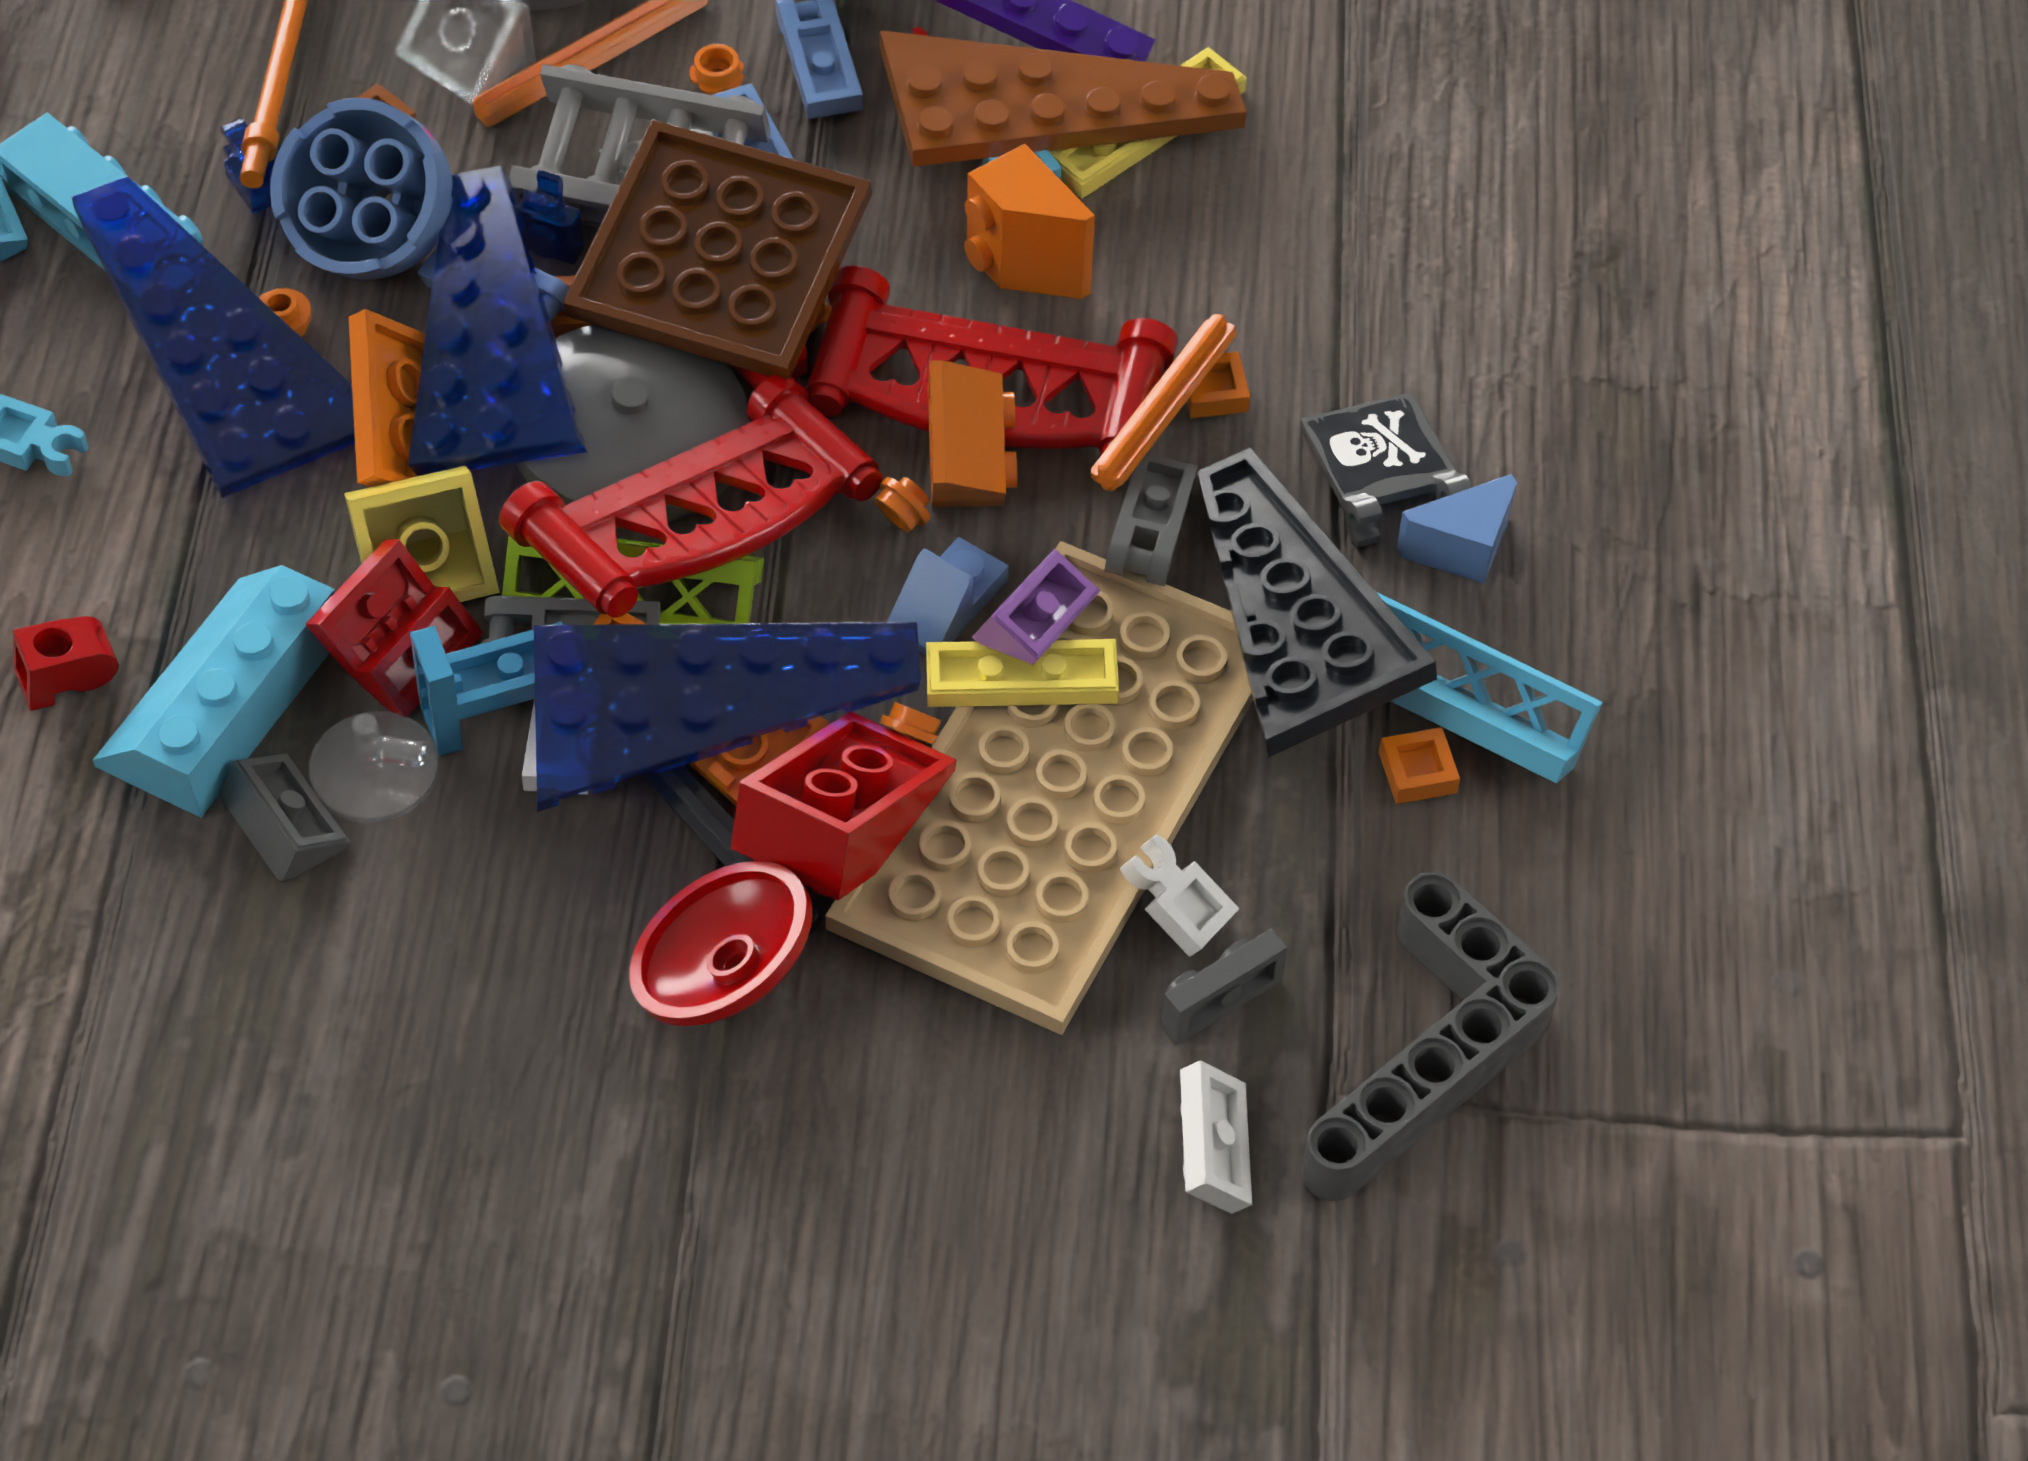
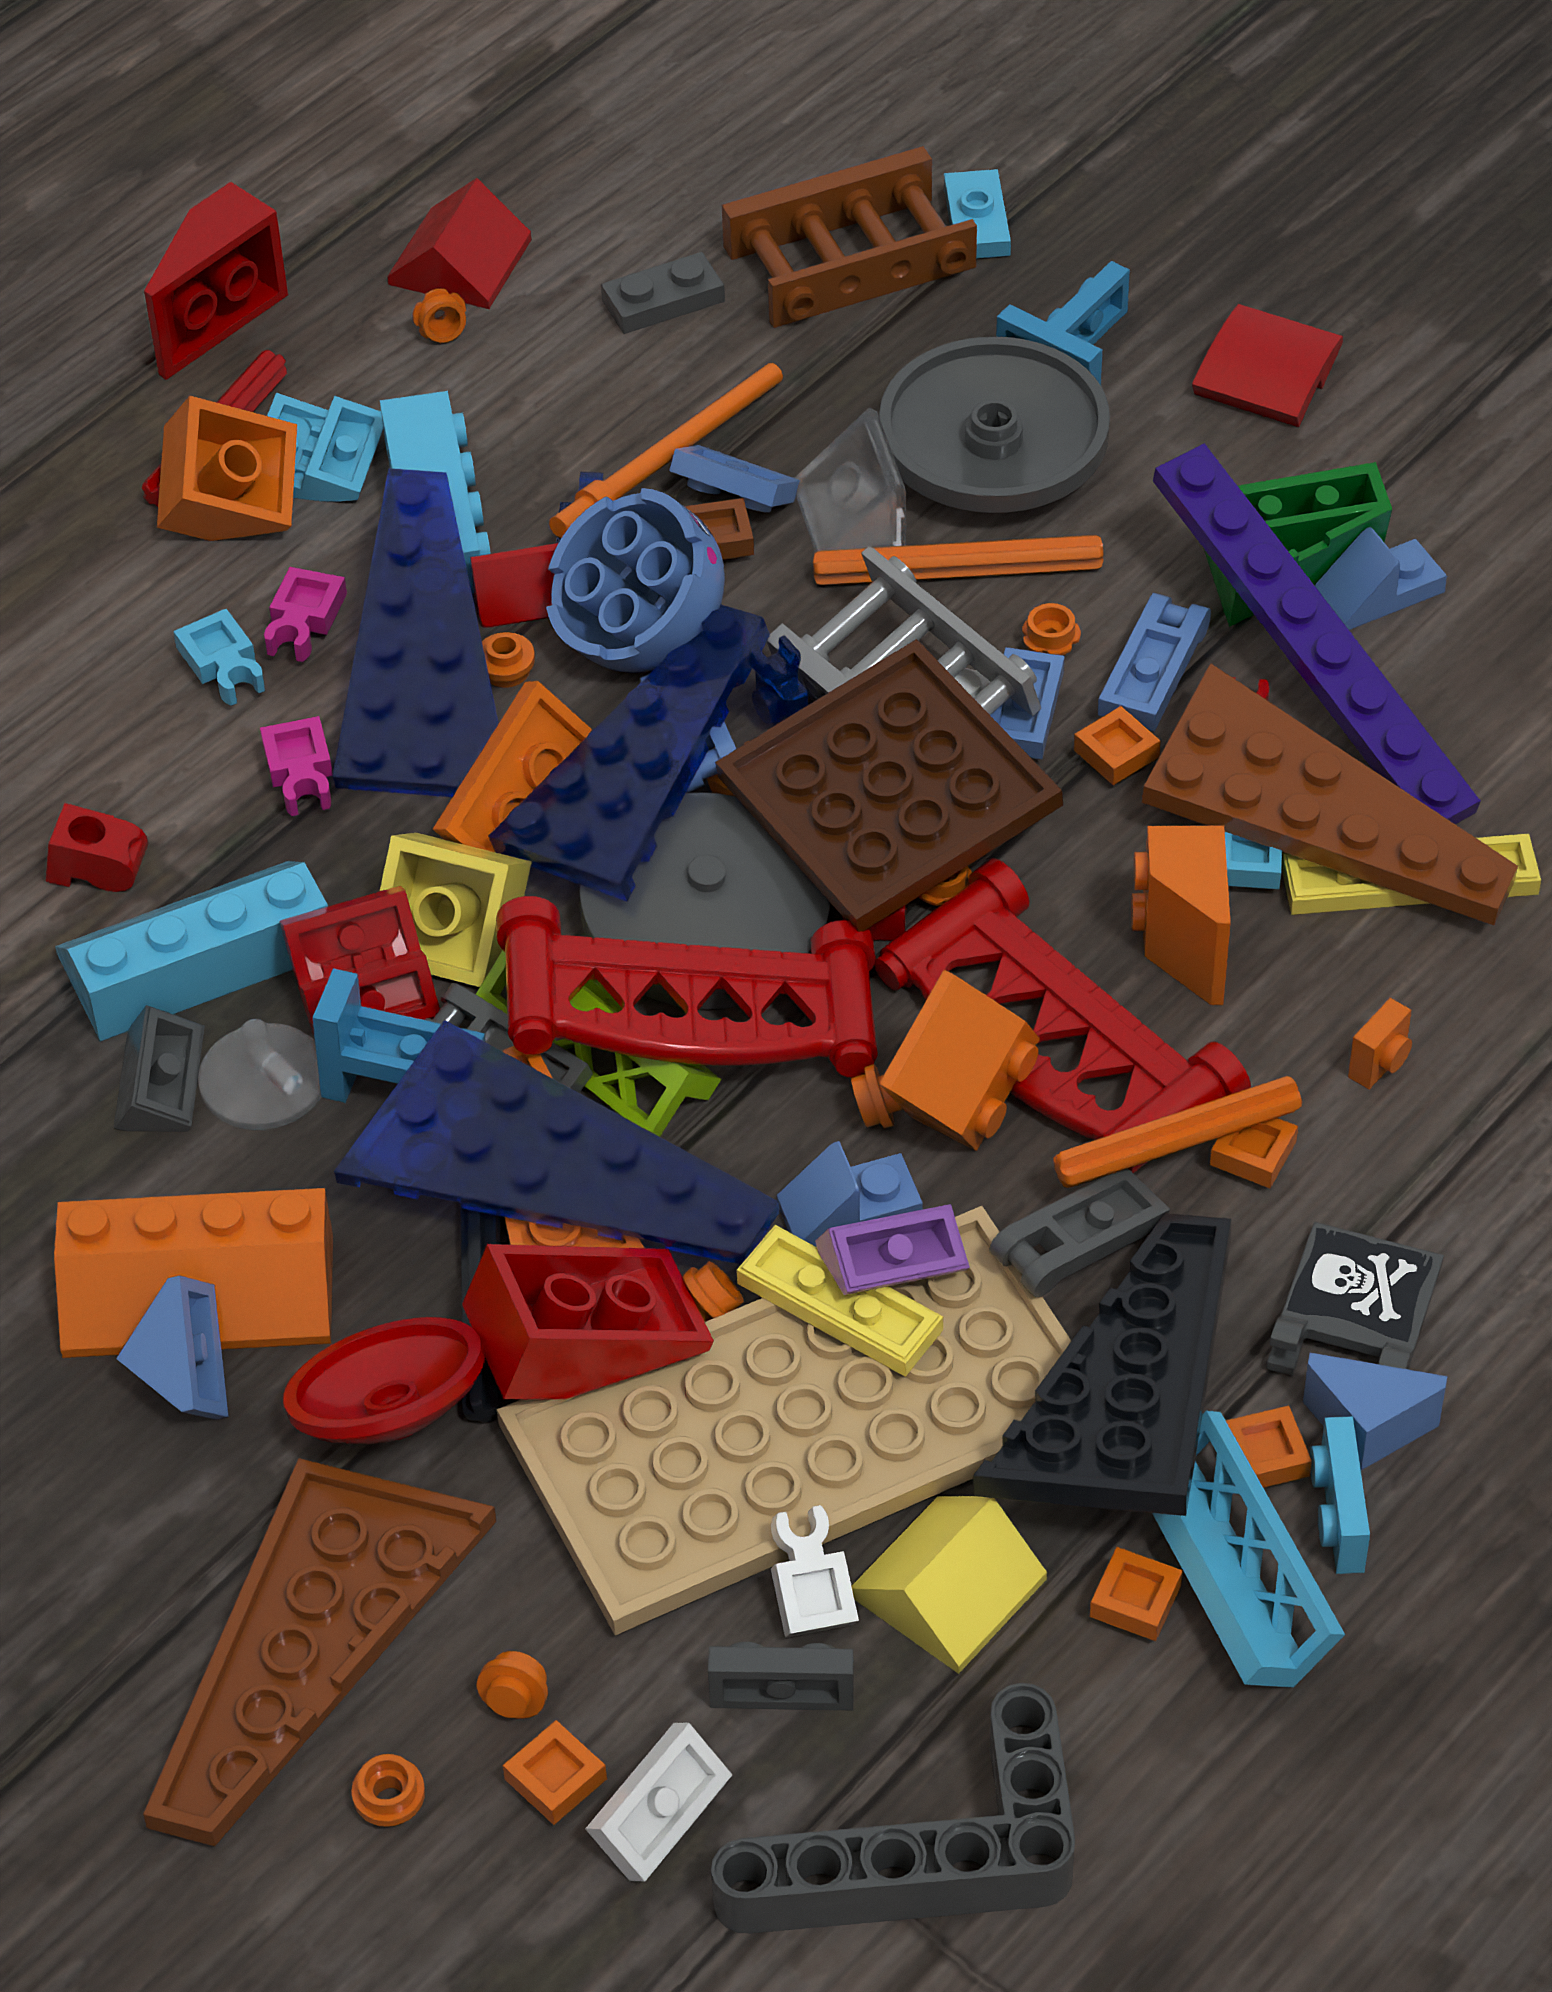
camera: 40 degrees right, 5 degrees down
(67, 361) = (303, 605): none -> dark pink plate
(177, 485) = (298, 761): none -> dark pink plate
(250, 241) = (513, 585): none -> red slope
(328, 74) = (713, 471): none -> medium blue plate
(472, 956) = (258, 1249): none -> orange slope
(523, 1025) = (180, 1348): none -> medium blue slope
(815, 1155) = (319, 1606): none -> dark orange wing
(848, 134) = (1117, 745): none -> orange plate
(996, 1246) = (384, 1773): none -> orange plate
(1025, 1120) = (513, 1685): none -> orange plate
(1115, 1166) = (554, 1772): none -> orange plate
(1245, 258) = (1381, 1044): none -> orange plate
(1272, 833) = (952, 1578): none -> light yellow slope
(1424, 594) = (1272, 1445): none -> orange plate
(1502, 605) = (1344, 1517): none -> medium azure plate

